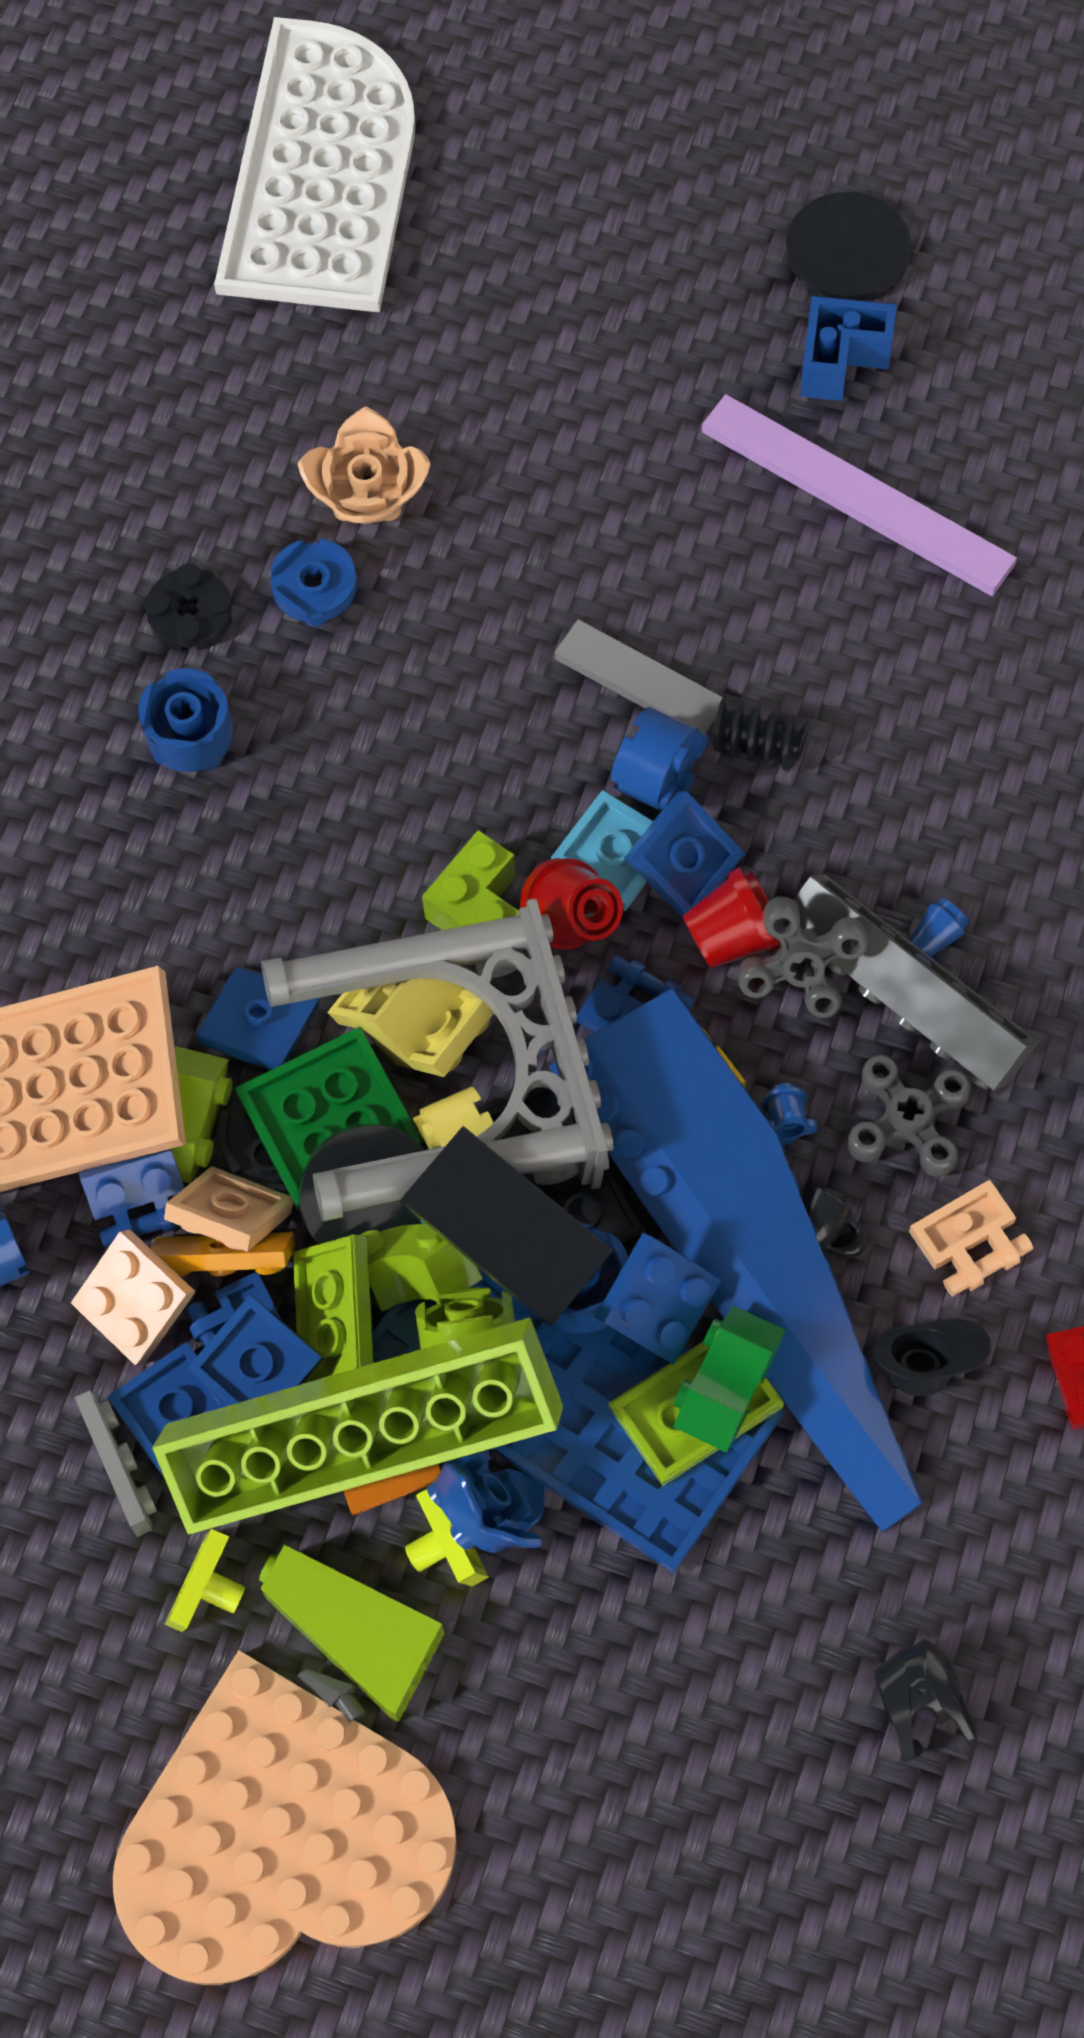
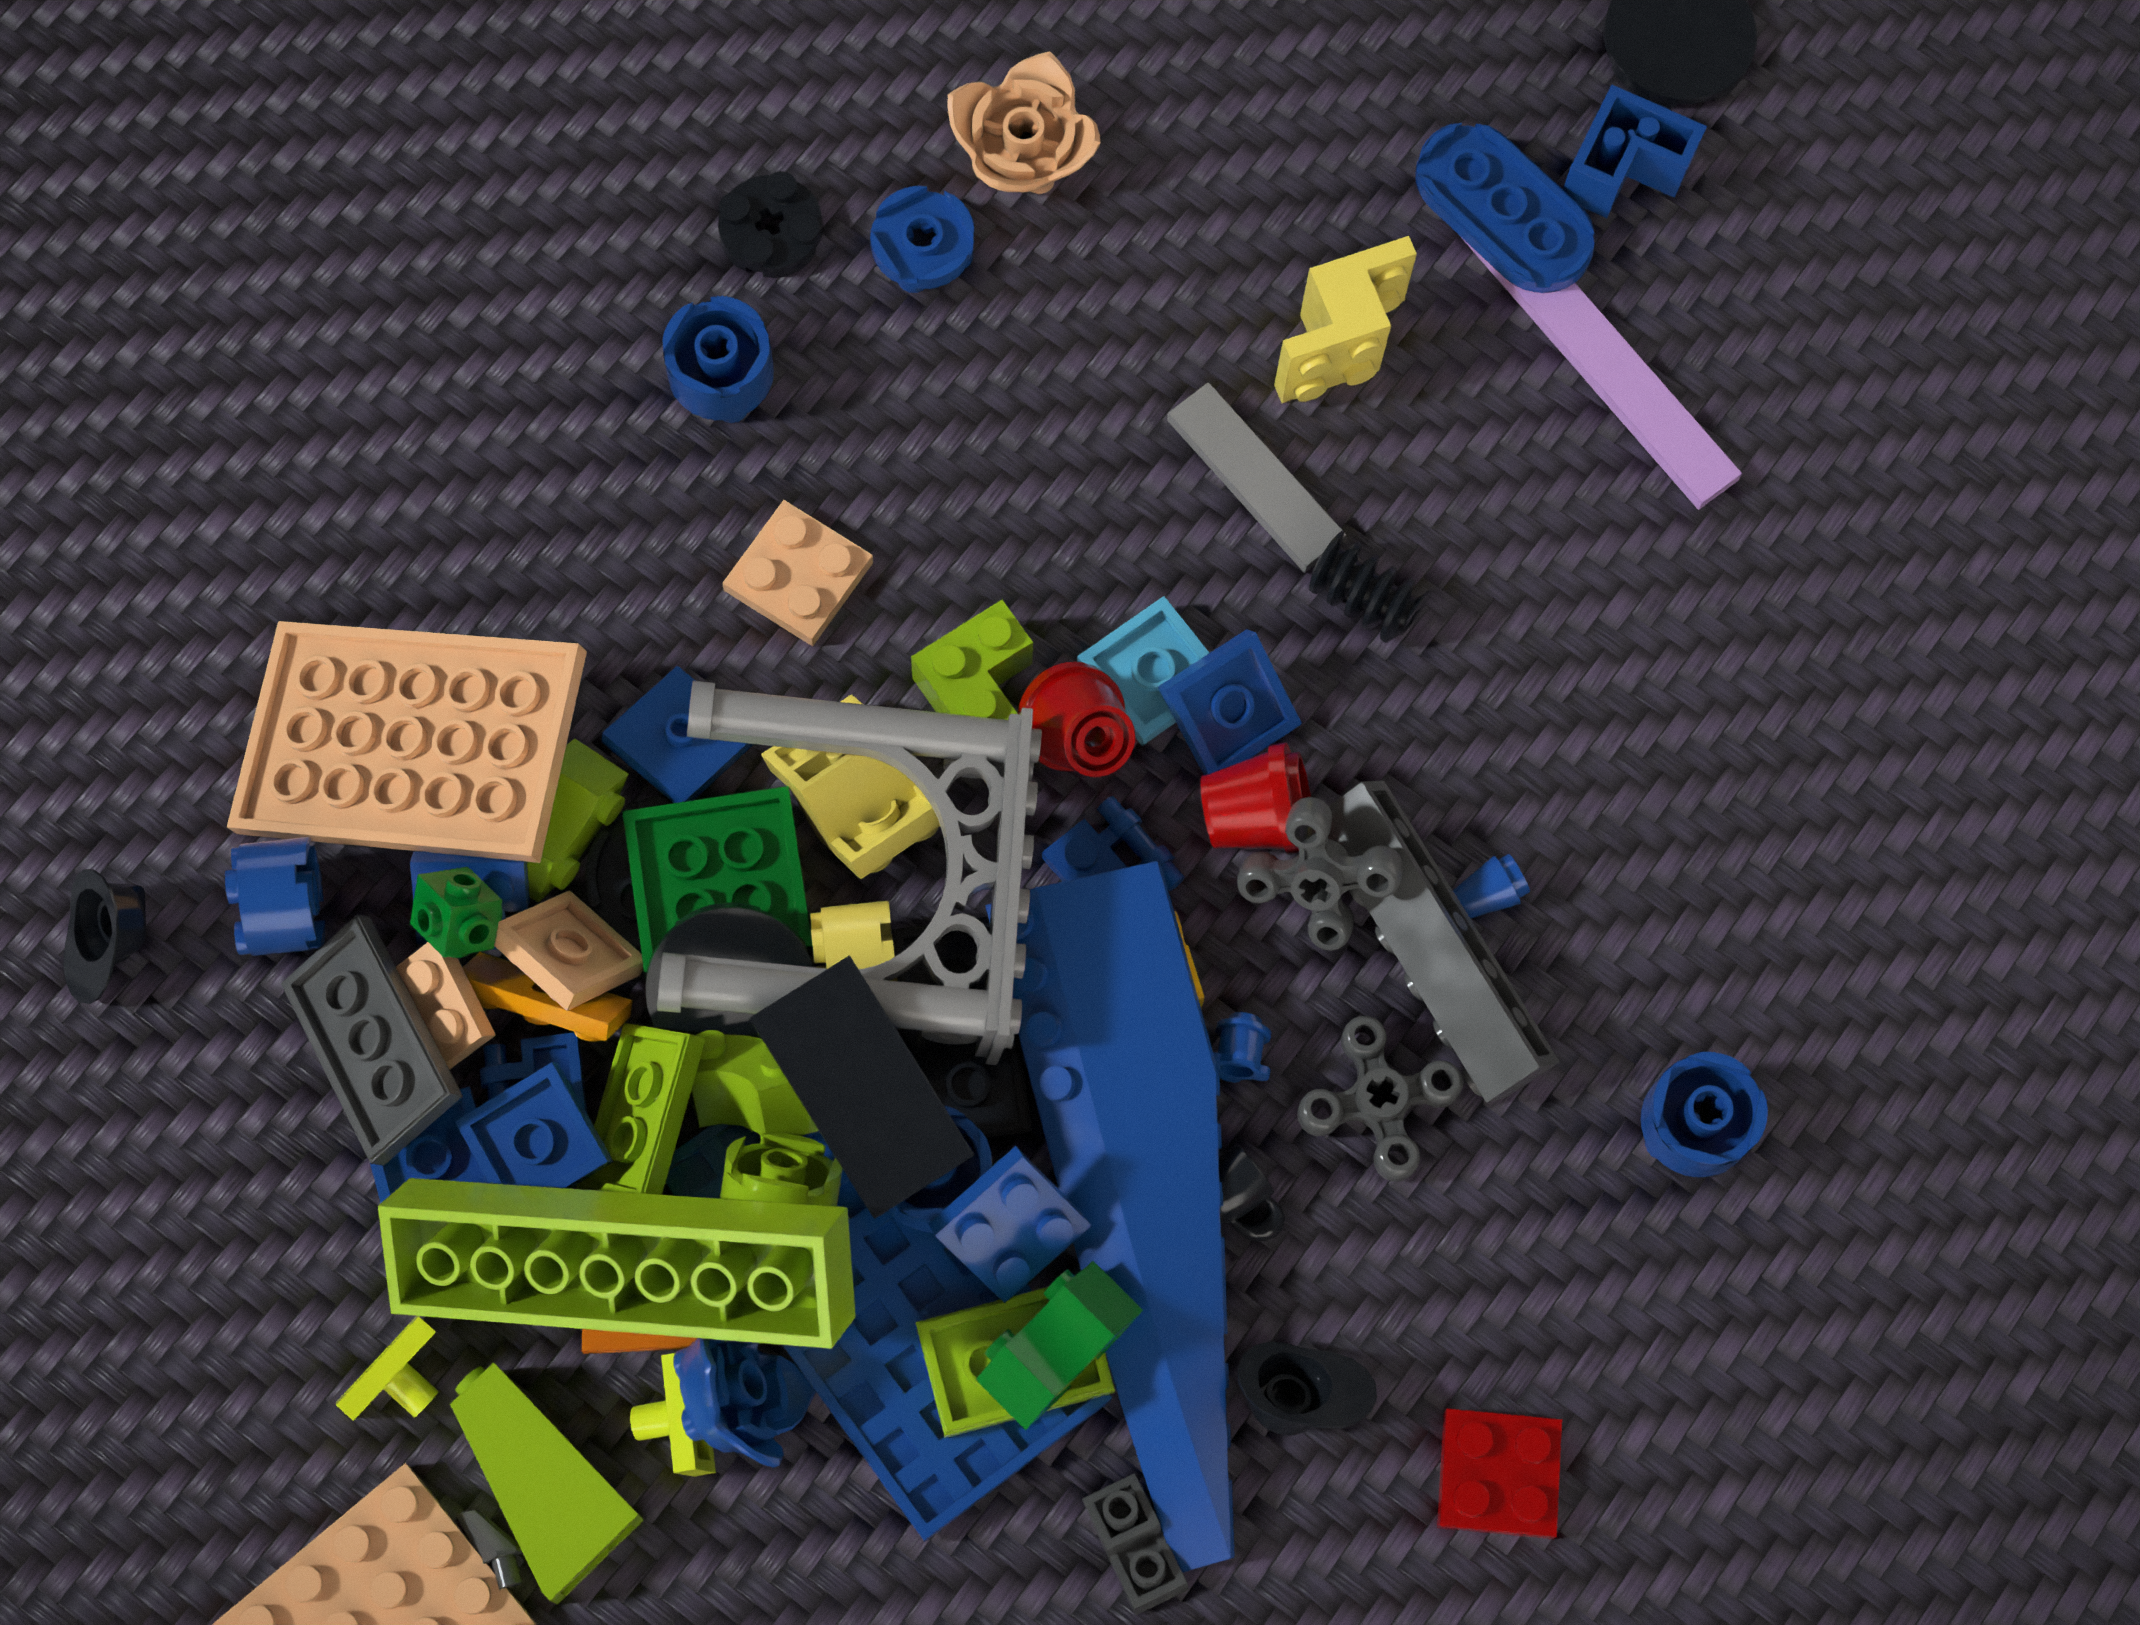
camera: 10 degrees right, 5 degrees up
(96, 1328) = (371, 1040): none -> dark grey tile
(117, 1462) = (343, 1201): light grey tile -> none
(132, 1203) = (456, 912): none -> green brick
(306, 866) = (798, 572): none -> light nougat plate
(657, 758) = (1239, 581): blue brick -> none
(669, 537) = (1345, 320): none -> light yellow bracket
(761, 415) = (1505, 207): none -> blue tile
(841, 1520) = (1135, 1544): none -> dark grey slope
(964, 1225) = (1397, 1248): light nougat plate -> none

